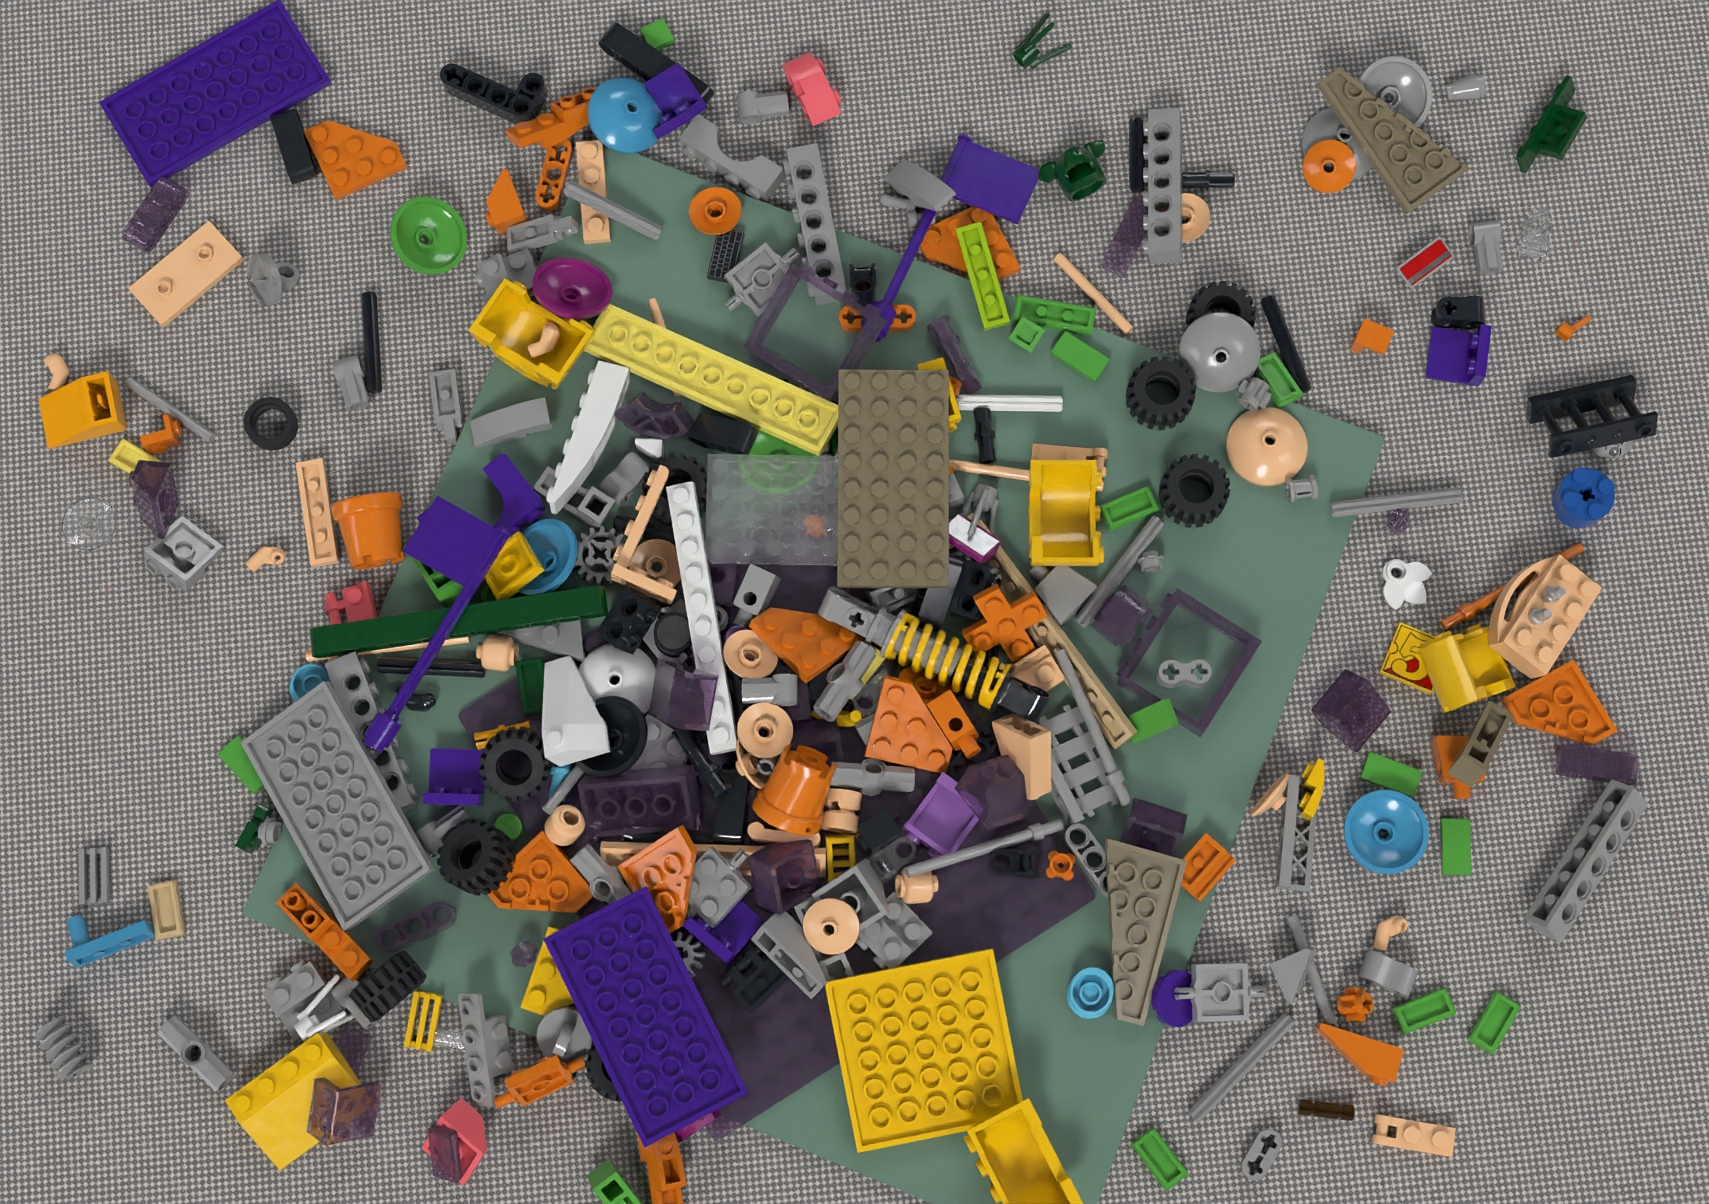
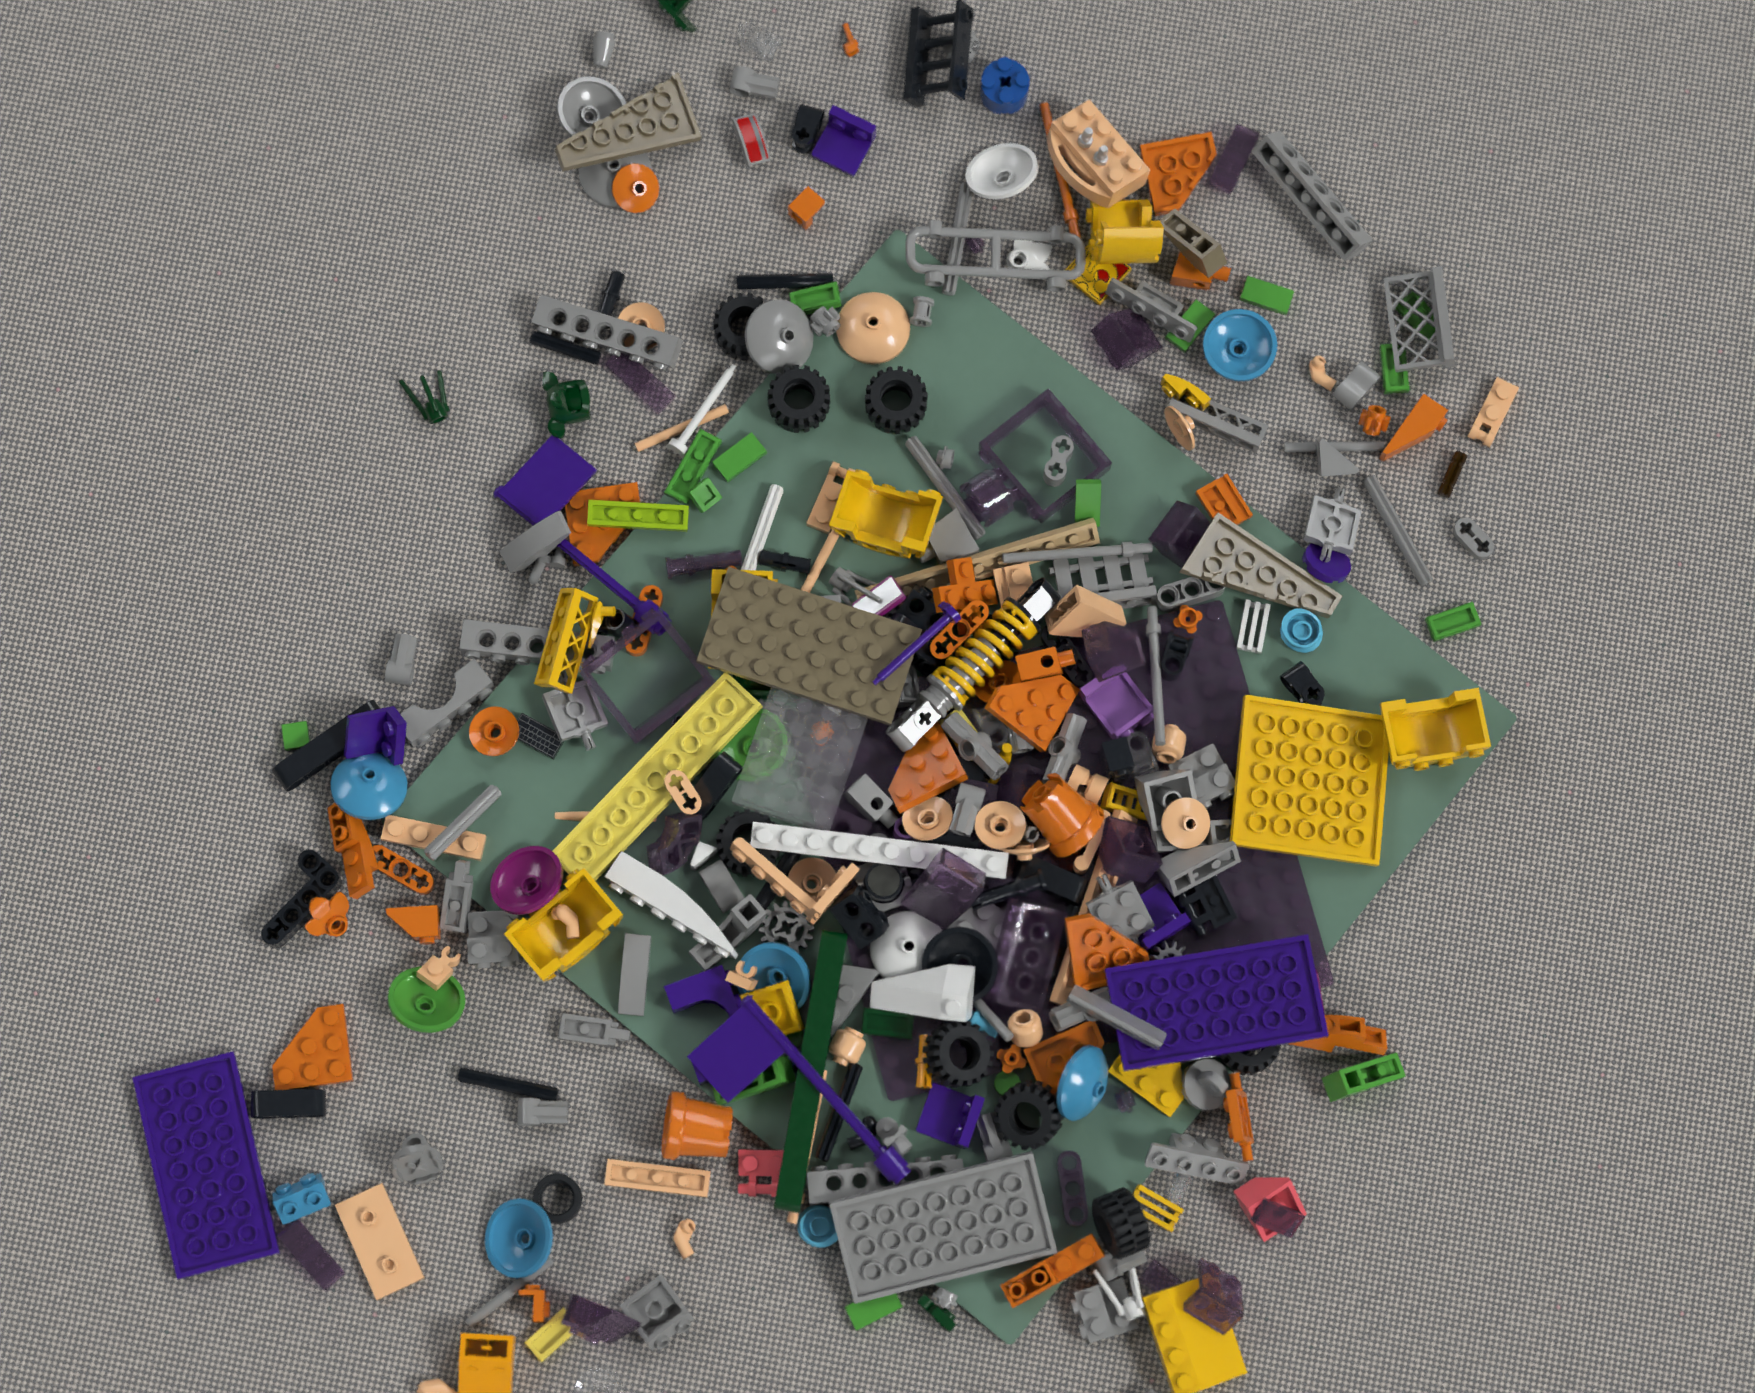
camera: 80 degrees left, 0 degrees up
(205, 185) = (301, 1198): none -> dark azure bracket
(218, 397) = (508, 1238): none -> dark azure dish
(414, 729) = (893, 1136): none -> light grey hips
(461, 238) = (438, 970): none -> light nougat plate
(485, 116) = (326, 913): none -> orange plate
(522, 901) = (1082, 1083): none -> dark azure dish
(523, 822) = (1008, 1065): none -> orange plate
(531, 525) = (742, 979): none -> light nougat tile
(595, 912) = (1116, 1017): none -> light grey slope
(700, 400) = (677, 795): none -> light nougat beam
(812, 89) = (403, 610): coral brick -> none
(825, 235) = (560, 632): none -> yellow fence
(859, 266) = (597, 618): none -> yellow bar
(943, 624) = (977, 620): none -> orange beam
(970, 607) = (950, 615): none -> dark purple piece
(1030, 1008) = (1301, 682): none -> black piece
(1072, 294) = (679, 446): none -> white piece
(1078, 928) = (1257, 606): none -> white tile
(1129, 508) = (891, 461): bright green tile -> none
(1389, 615) = (936, 273): none -> light grey bar
(1398, 727) = (1154, 306): none -> light grey bracket
(1486, 522) = (1001, 171): none -> white dish
(1496, 1045) = (1441, 320): none -> light grey fence

